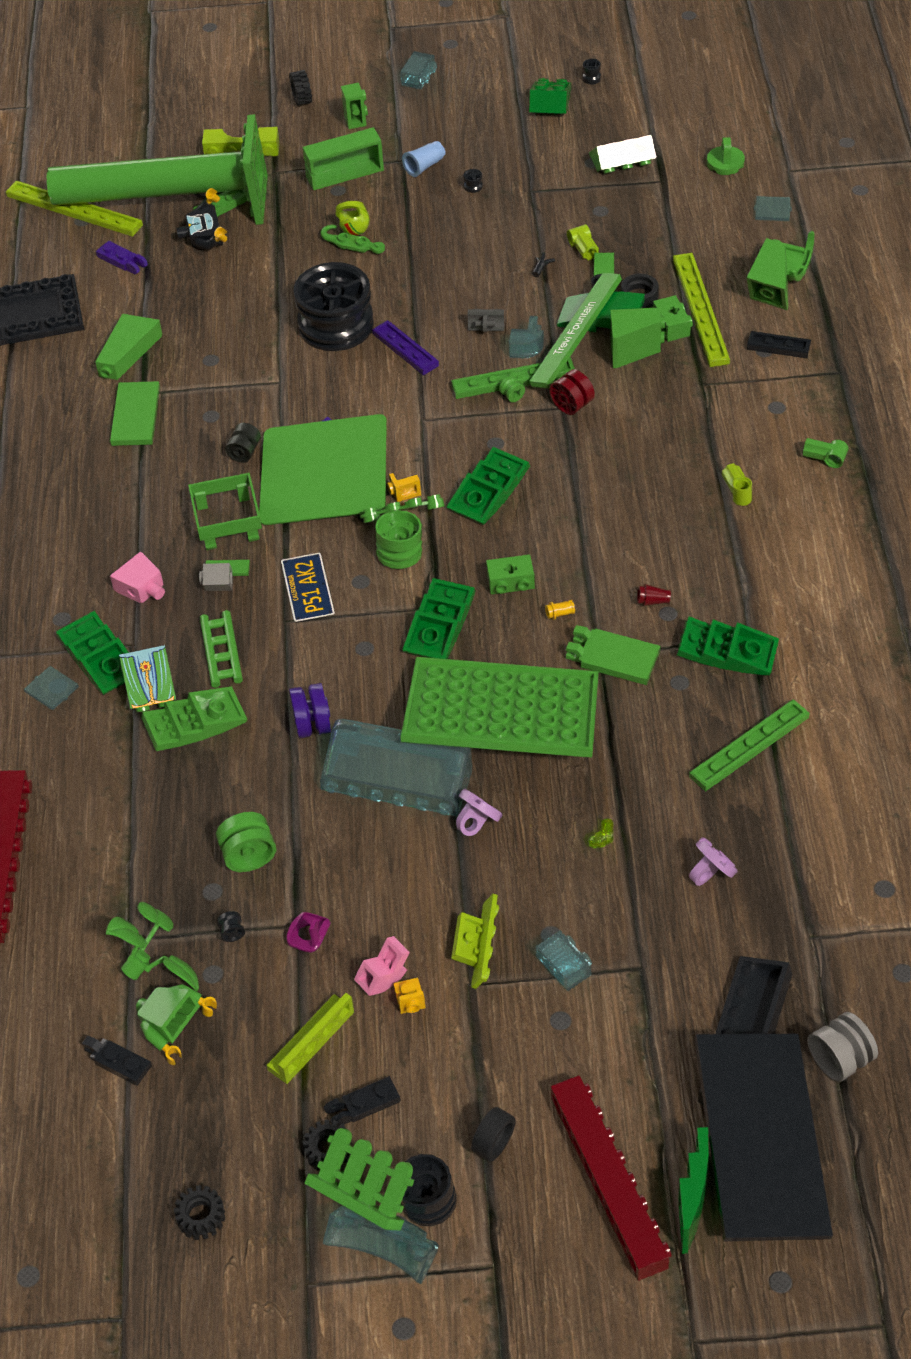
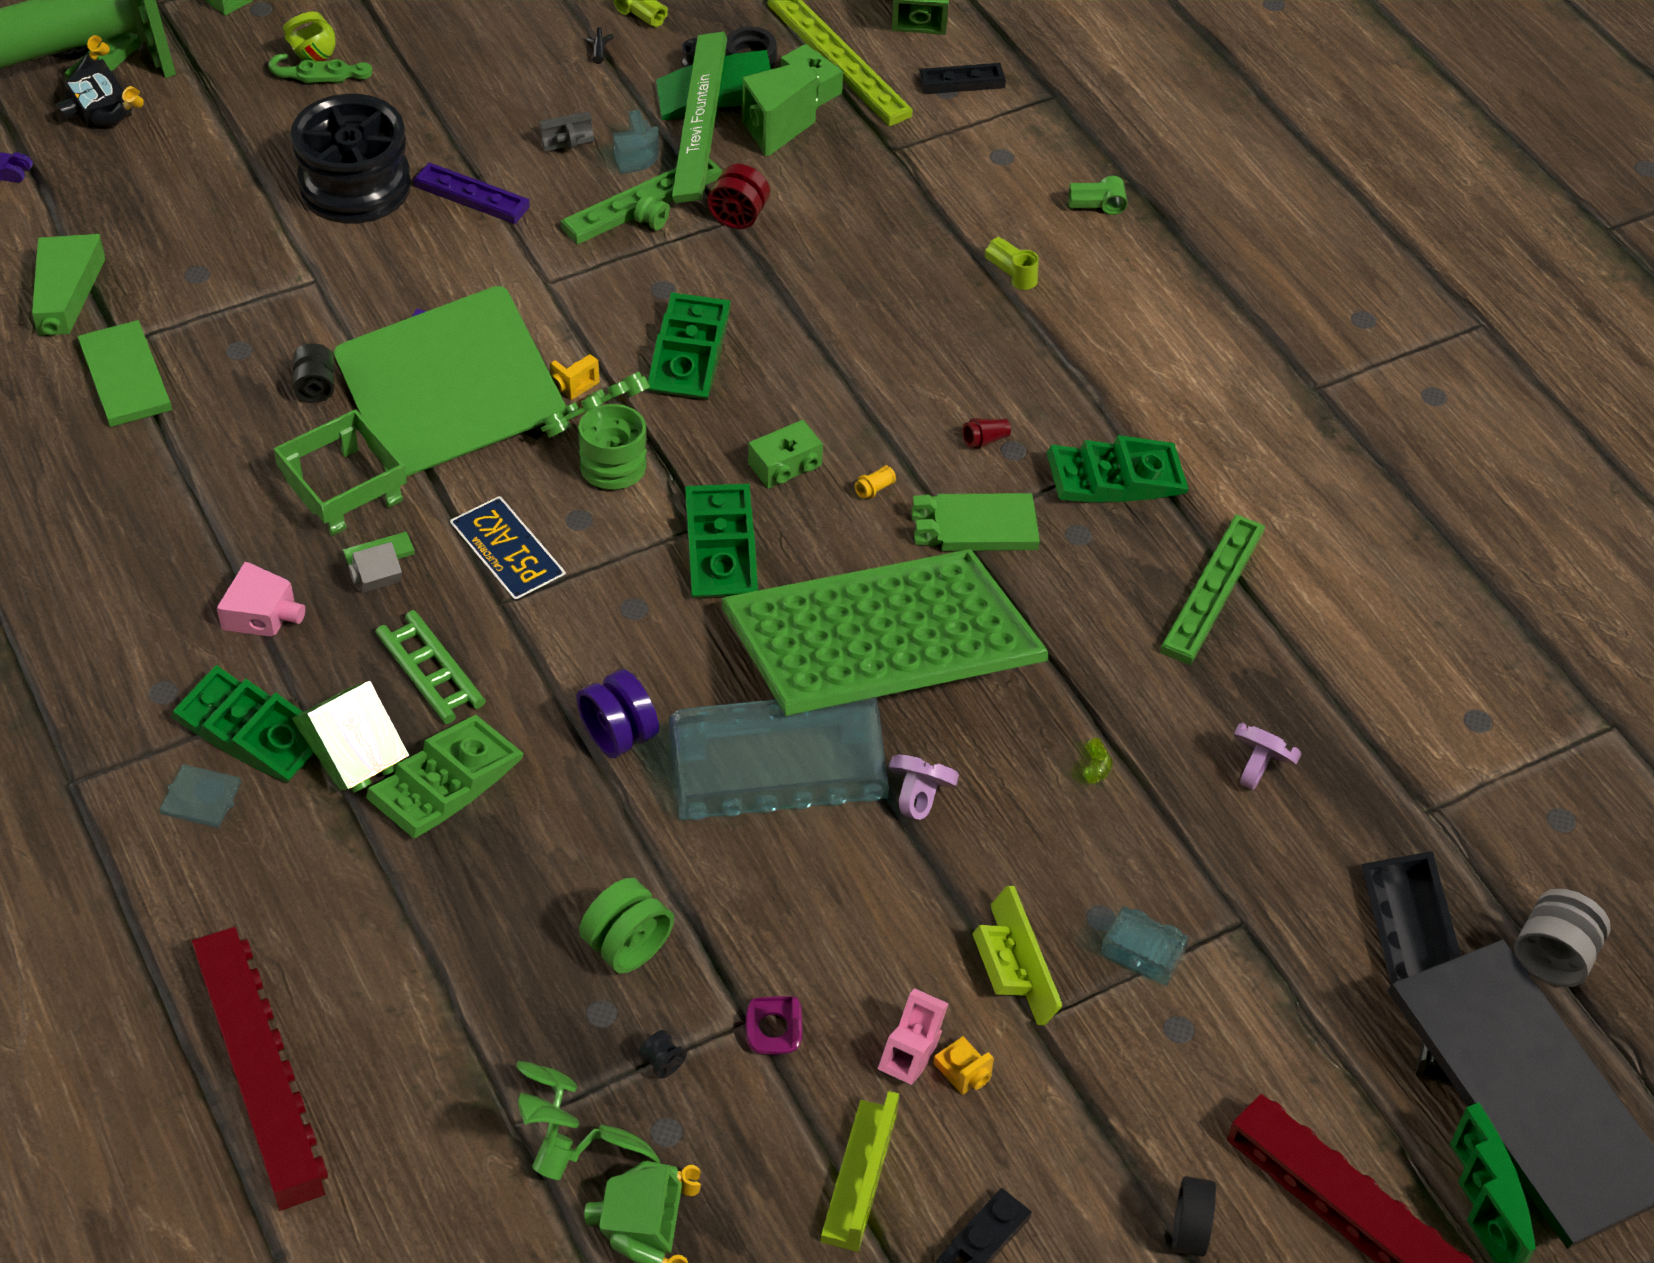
camera: 30 degrees left, 0 degrees up
(603, 263) = (681, 27): bright green tile -> none

